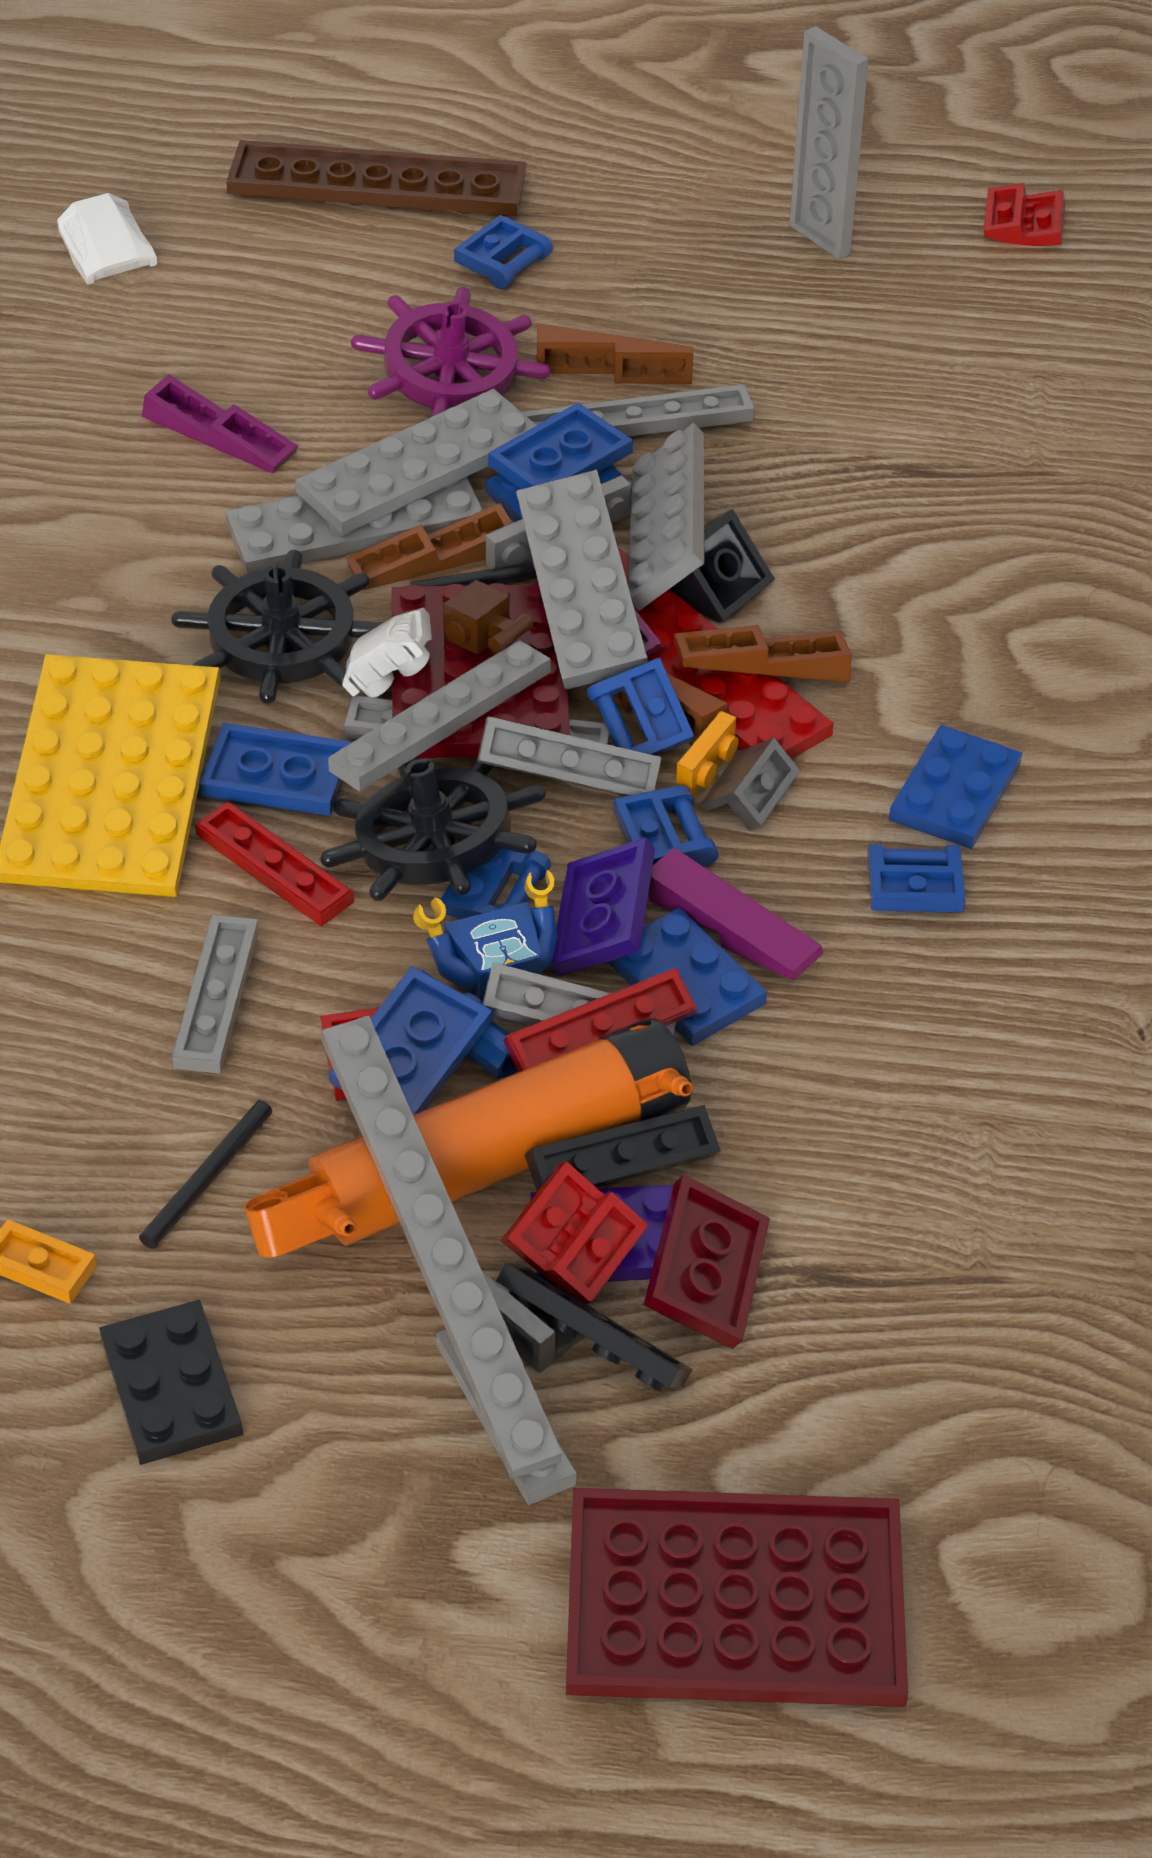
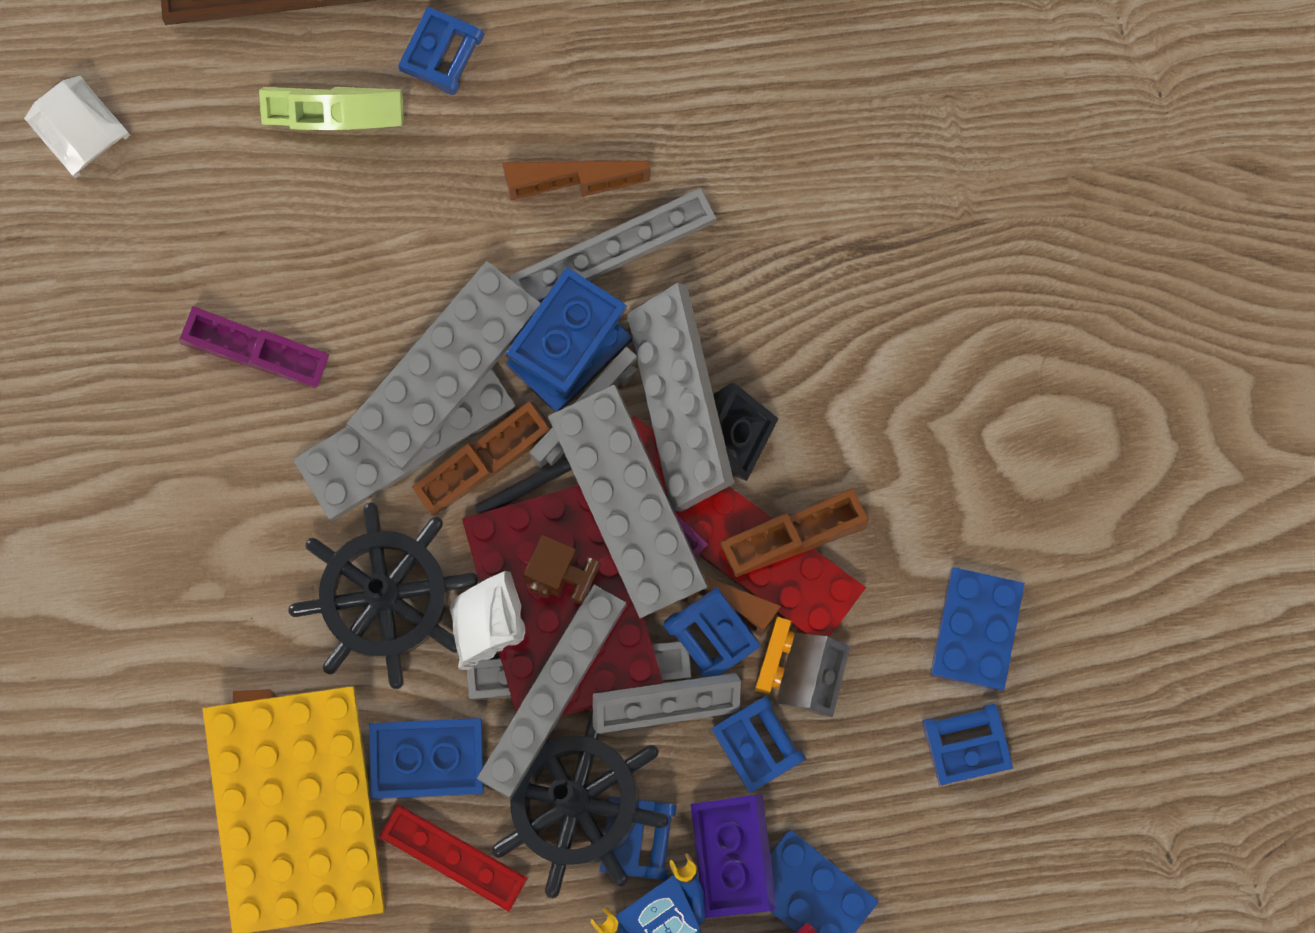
camera: 15 degrees left, 30 degrees up
(374, 262) = (331, 109): none -> yellowish green slope
(448, 353) = (433, 215): magenta piece -> none
(741, 922) = (835, 830): magenta slope -> none

